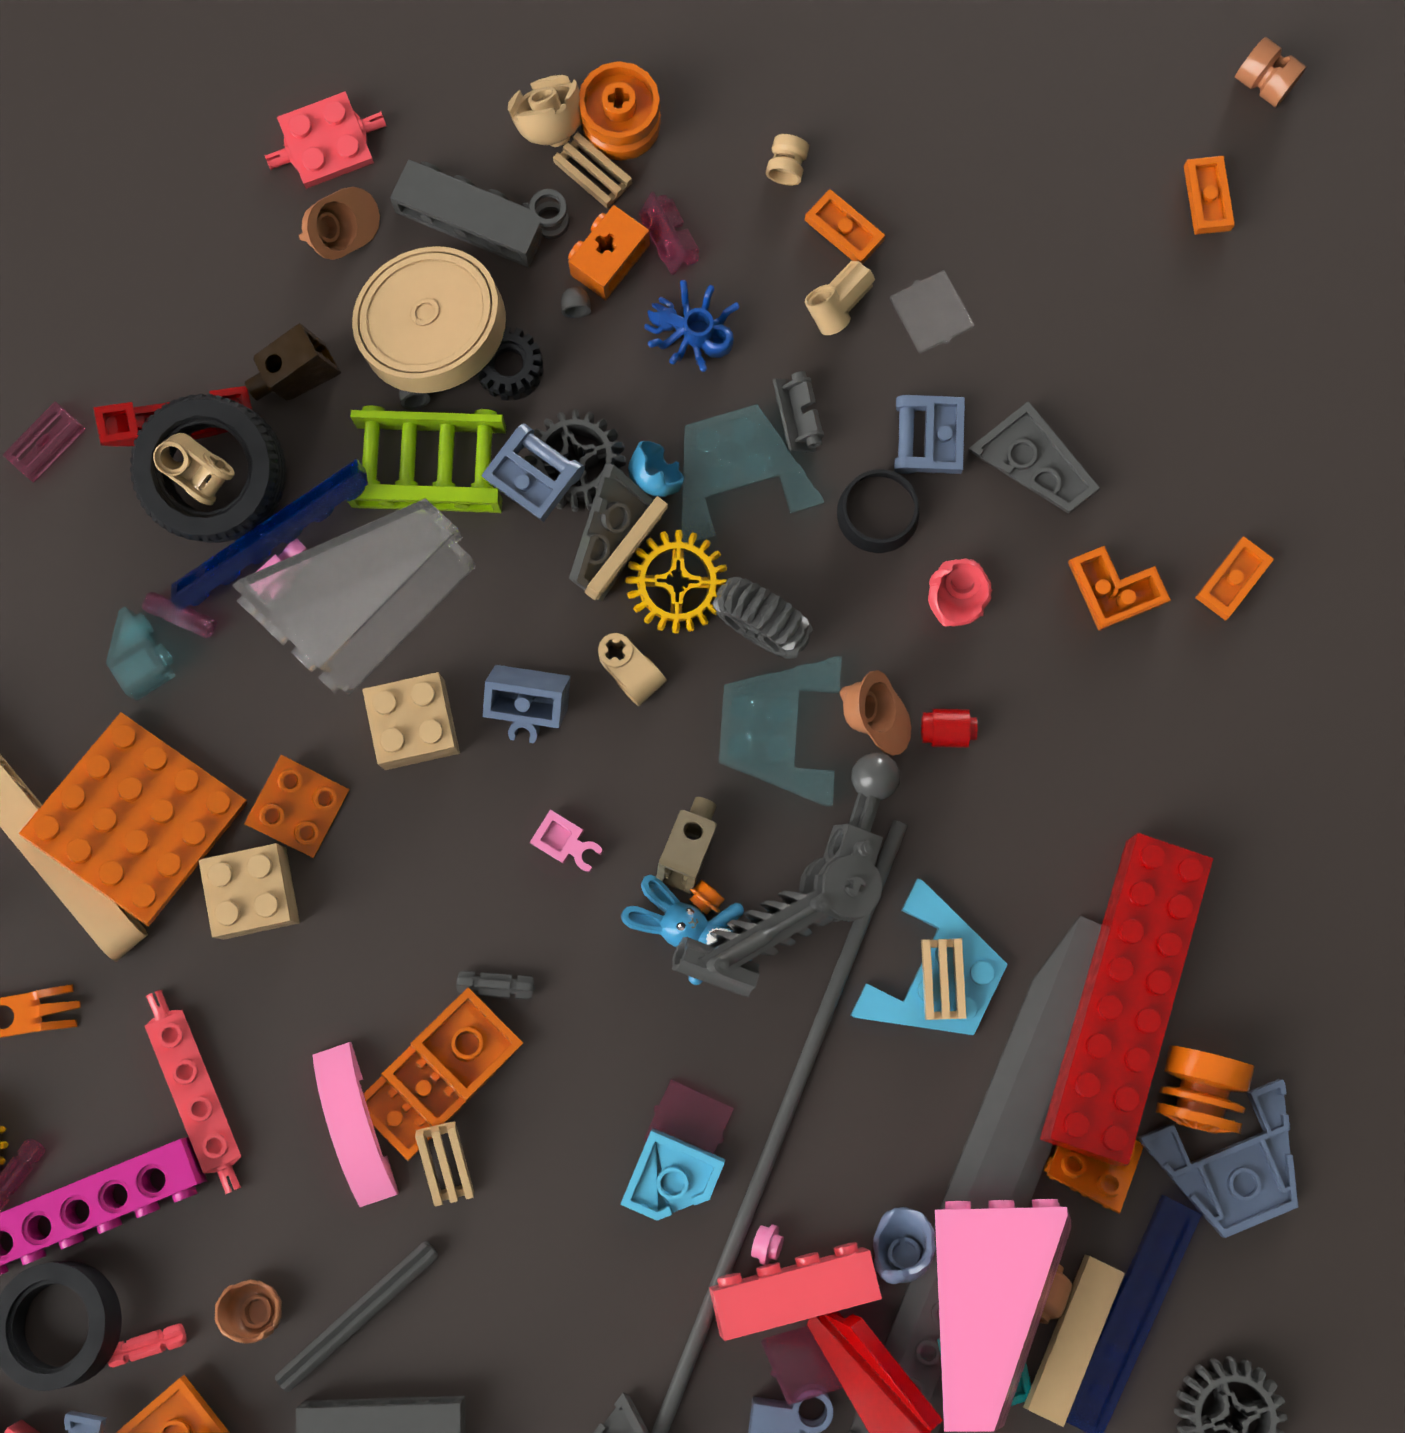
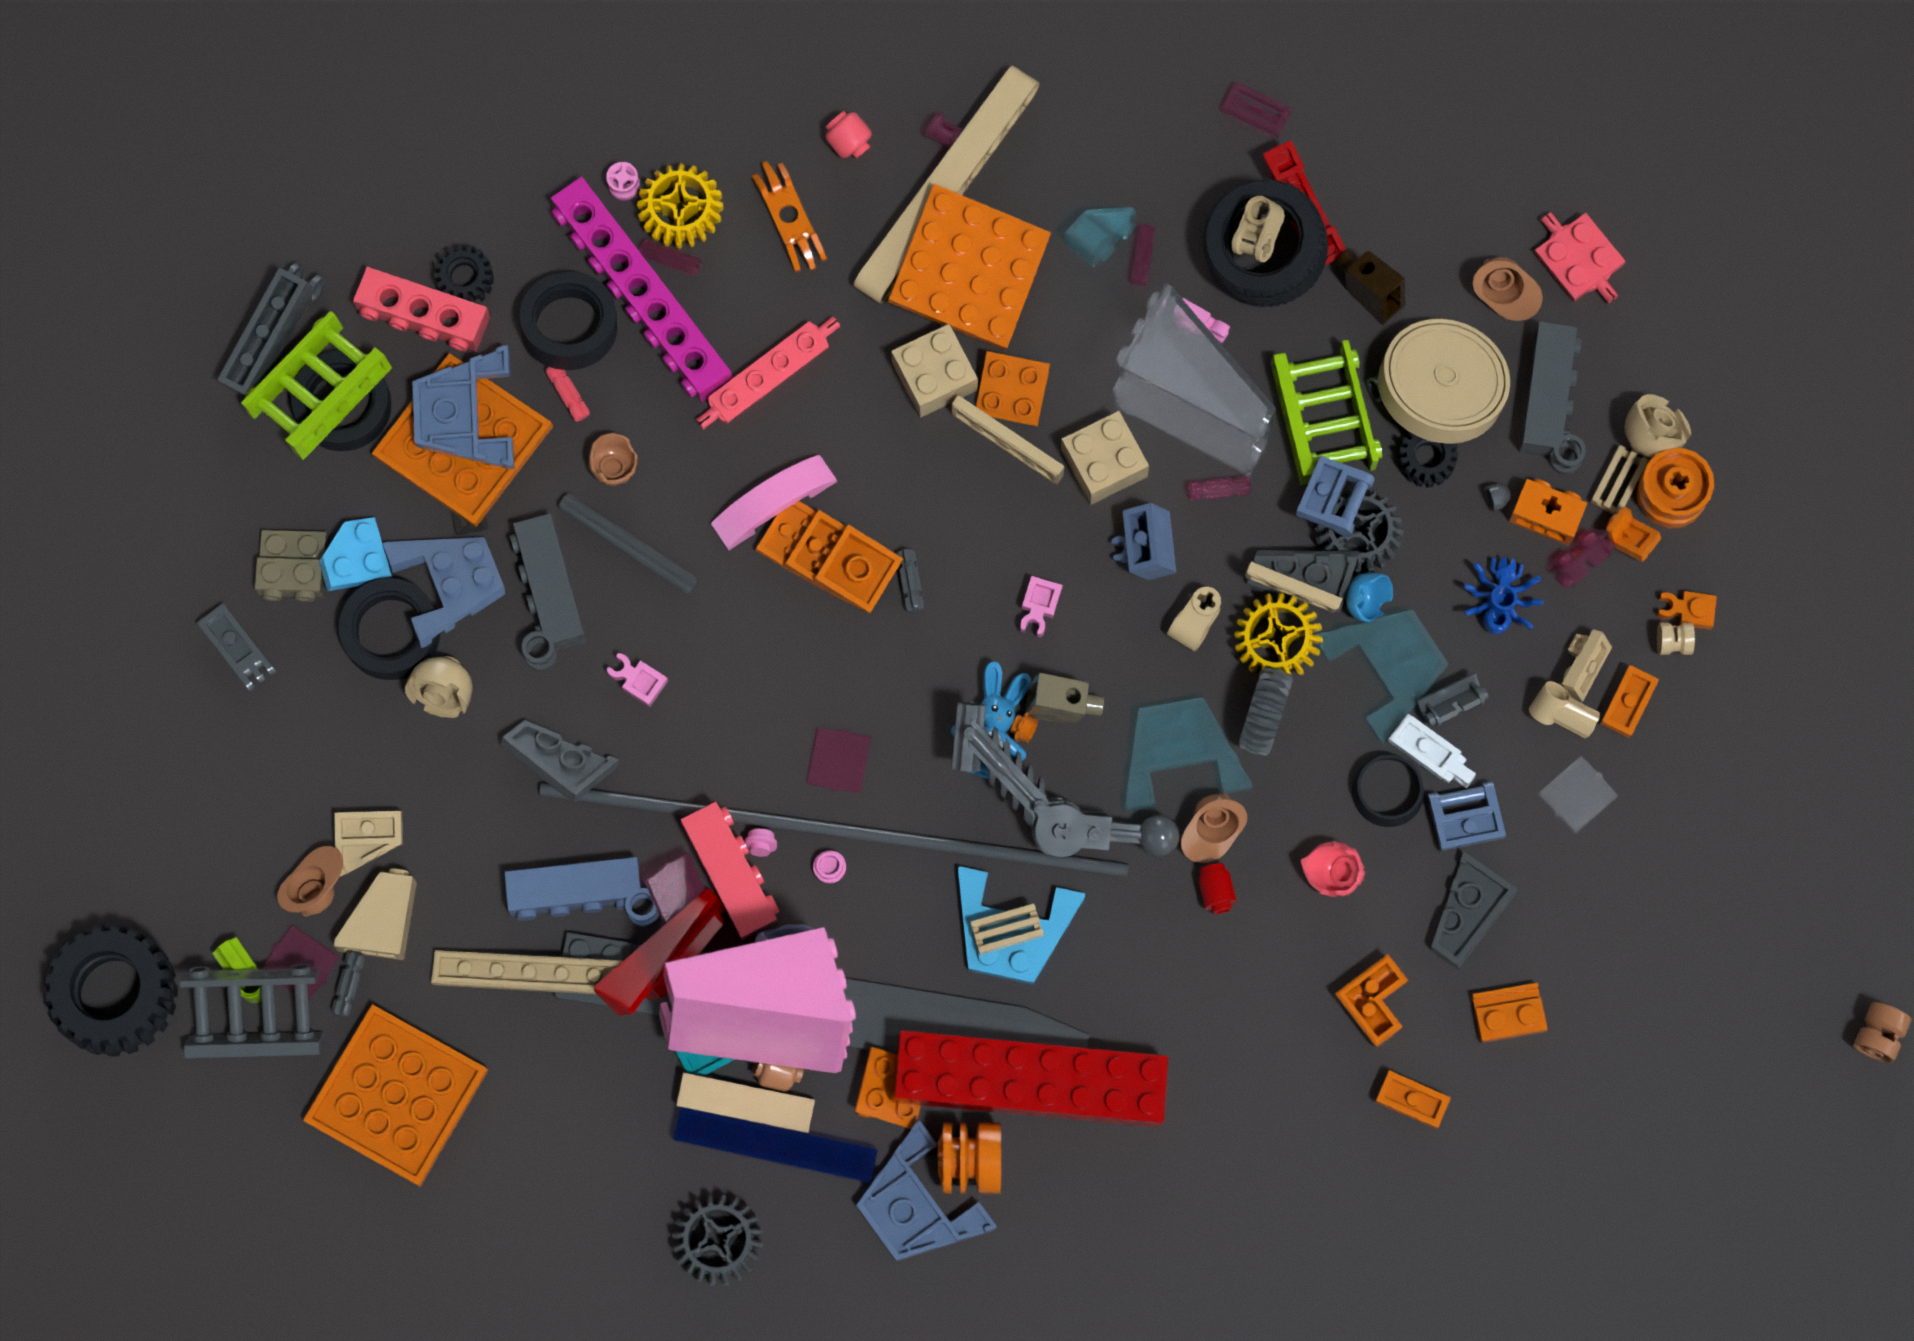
camera: 75 degrees right, 5 degrees down
(259, 542) = (1217, 299): clear blue plate -> none
(357, 828) = (1007, 440): none -> tan tile
(451, 1192) = (739, 589): tan tile -> none
(481, 602) = (1219, 488): none -> clear pink axle
(533, 1341) = (641, 682): none -> bright pink plate
(660, 172) = (1632, 535): none -> orange bracket
(671, 1176) = (795, 753): medium azure plate -> none
(756, 137) = (1692, 608): none -> orange plate
(780, 252) = (1589, 656): none -> tan hinge
(814, 1167) = (829, 866): none -> bright pink plate
(848, 452) = (1431, 751): none -> white hinge
(1157, 450) = (1509, 1012): none -> orange plate
(1209, 195) = (1753, 1005): orange plate -> none

